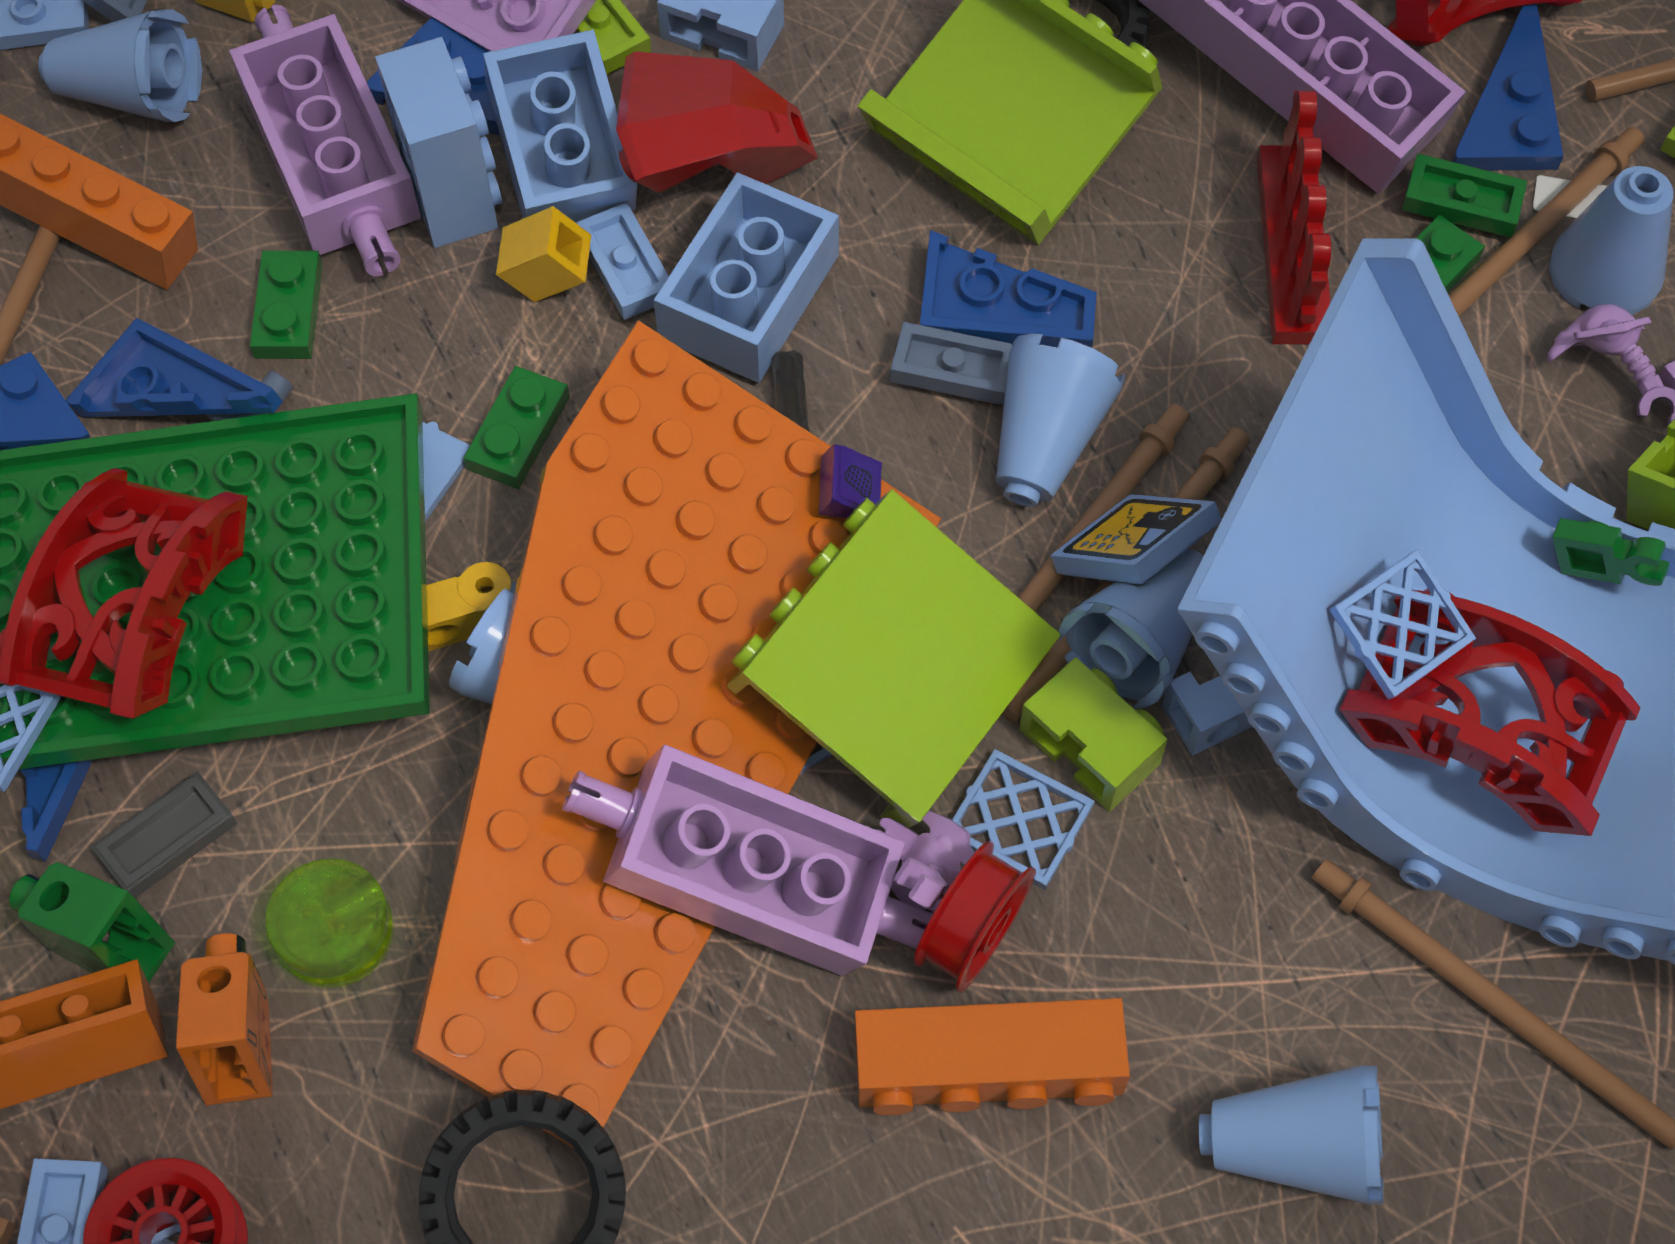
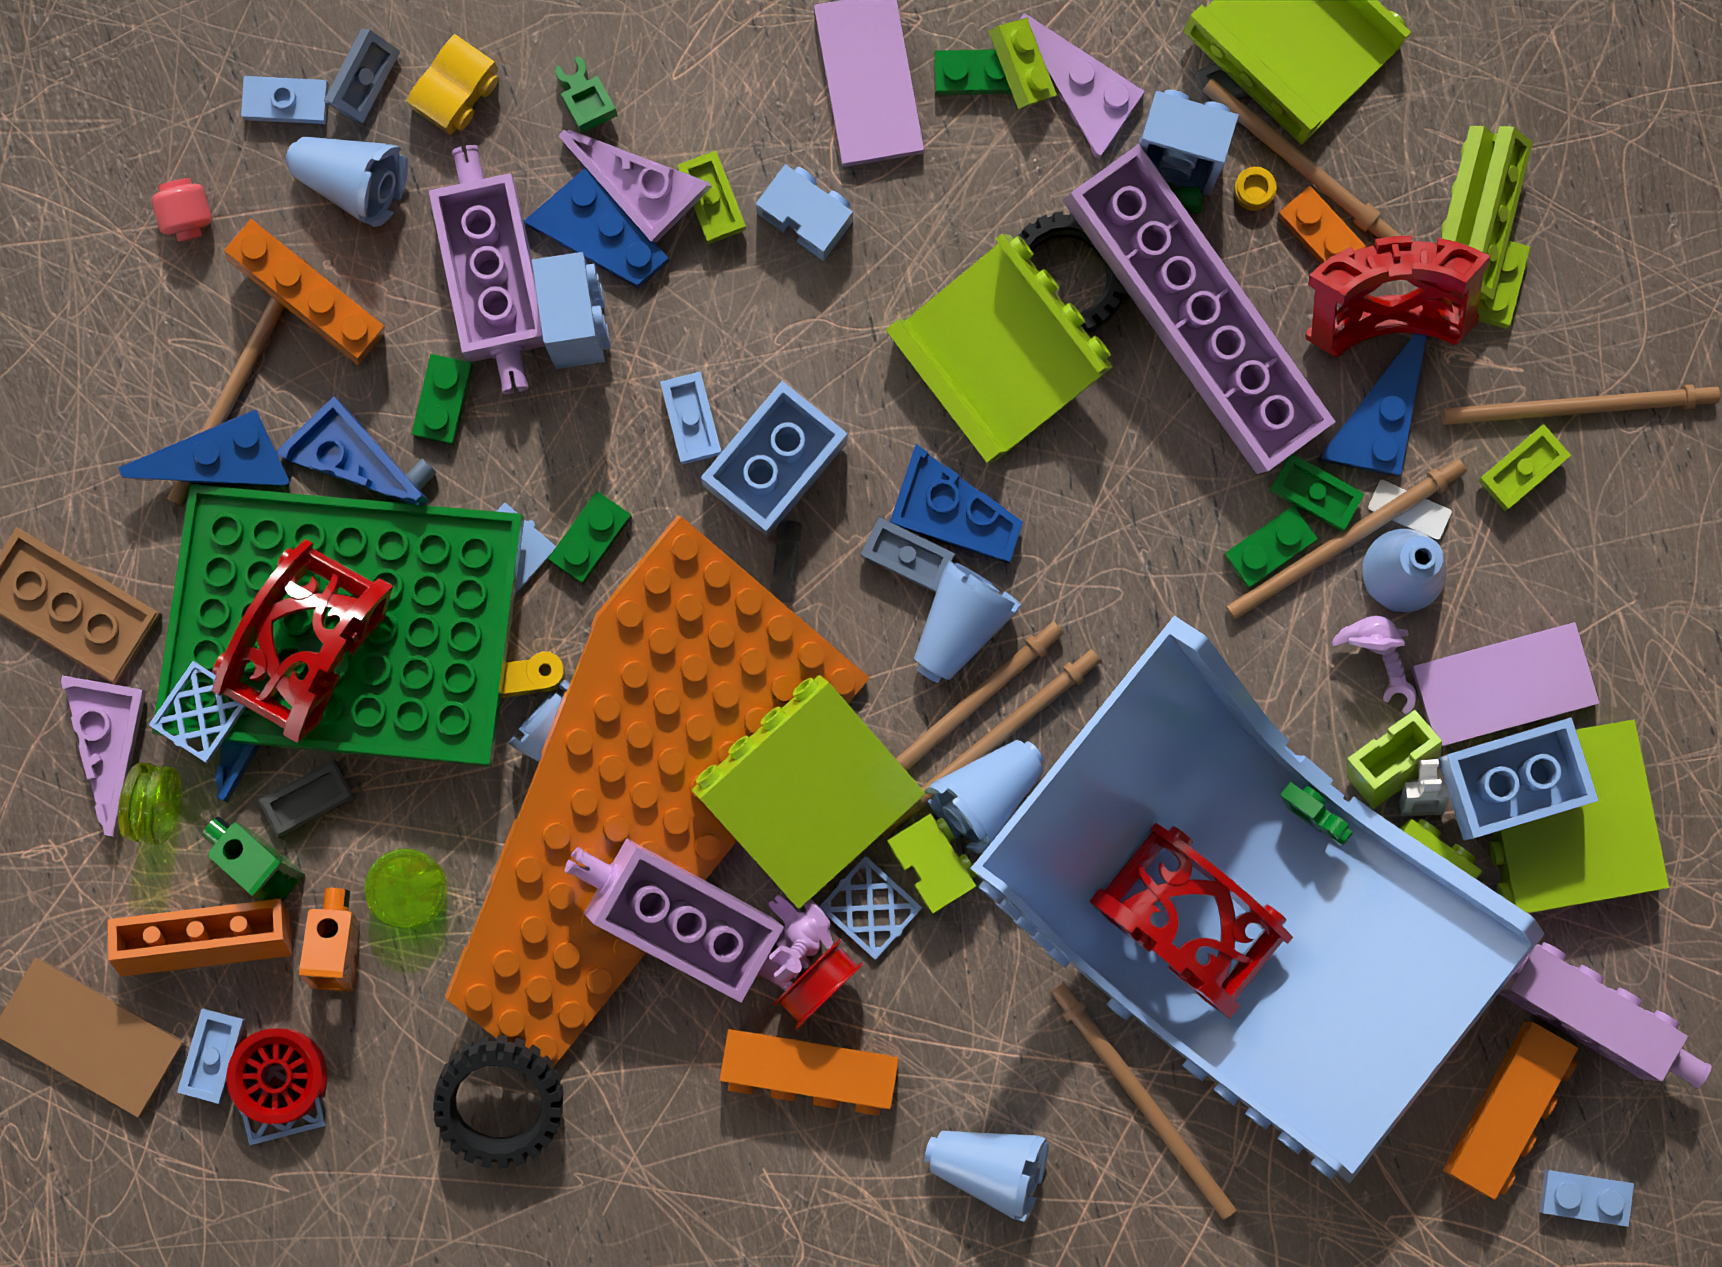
camera: 10 degrees right, 20 degrees up
(543, 254) = (632, 408): yellow brick -> none
(558, 126) = (660, 310): light blue brick -> none
(702, 113) = (766, 322): red brick -> none
(847, 480) = (806, 656): dark purple slope -> none
(1136, 538) = (994, 733): tile -> none
(1293, 227) = (1182, 501): red fence -> none
(1368, 648) = (1129, 834): light blue window -> none

